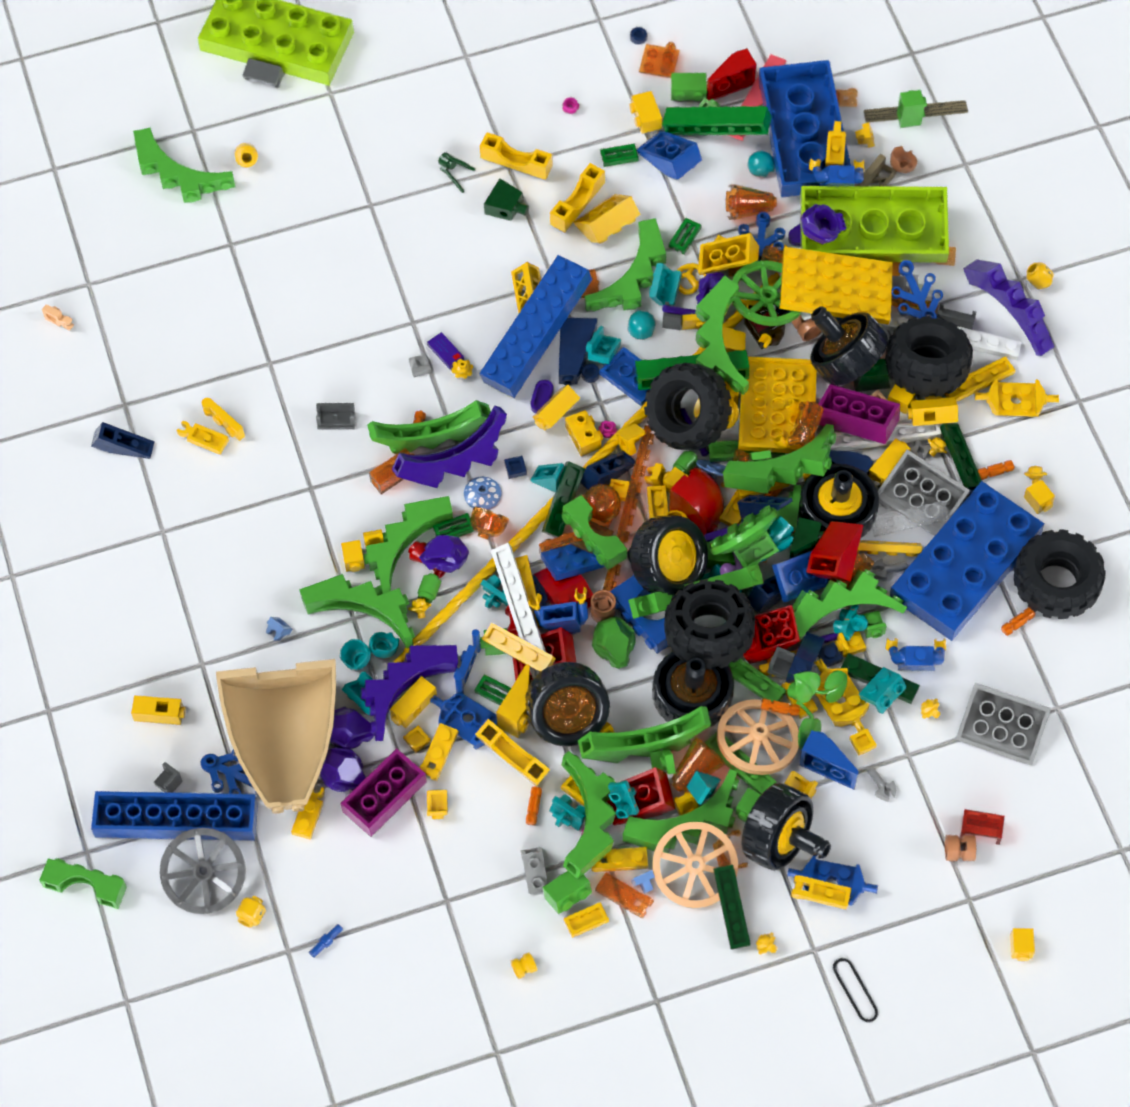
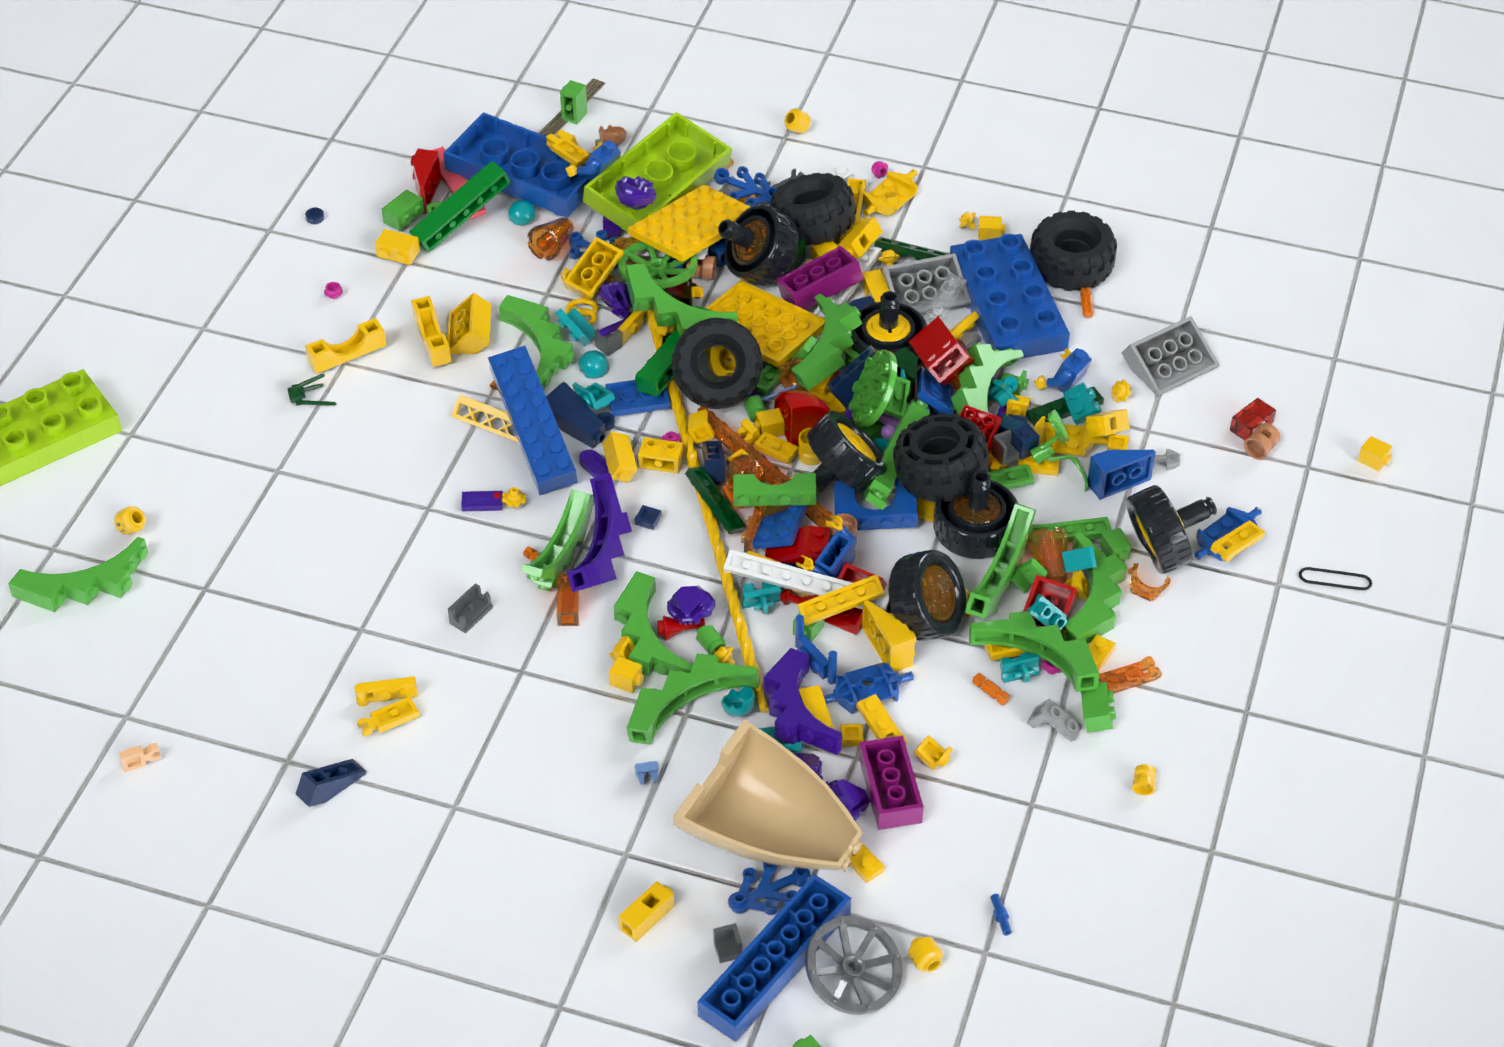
camera: 55 degrees left, 15 degrees down
(263, 72) = (56, 461): dark grey hinge -> none
(355, 654) = (726, 724): teal hair -> none
(419, 365) = (478, 525): light grey tile -> none
(456, 530) = (661, 605): green tile -> none
(485, 694) = (857, 656): green tile -> none
(486, 499) = (648, 556): medium blue dish -> none
(487, 523) = (687, 561): clear orange cylinder -> none
(505, 202) = (380, 379): dark green torso -> none
(512, 753) = (957, 665): yellow arch -> none
(548, 476) = (680, 499): teal slope -> none
(586, 919) = (1133, 713): yellow plate -> none
(614, 641) = (877, 540): bright green helmet -> none
(619, 157) = (418, 290): green tile -> none
(644, 881) = (1129, 652): medium blue tile -> none
(659, 60) = (354, 215): clear orange hinge -> none
(671, 154) = (452, 256): blue slope -> none
(678, 247) = (548, 301): green tile -> none
(728, 846) = (1145, 605): light nougat wheel -> none
(731, 907) = (1203, 606): dark green plate -> none
(757, 738) = (1058, 500): light nougat wheel -> none
(766, 943) = (1252, 606): yellow plant -> none
(780, 707) = (1041, 475): orange axle -> none
(800, 783) = (1118, 505): yellow bracket -> none
(805, 425) = (803, 305): clear orange torso -> none
(873, 720) = (1107, 422): none -> yellow brick
(996, 469) = (941, 238): orange axle -> none
(1026, 311) = (804, 137): dark purple arch -> none
(1039, 371) = (879, 169): none -> dark pink plate

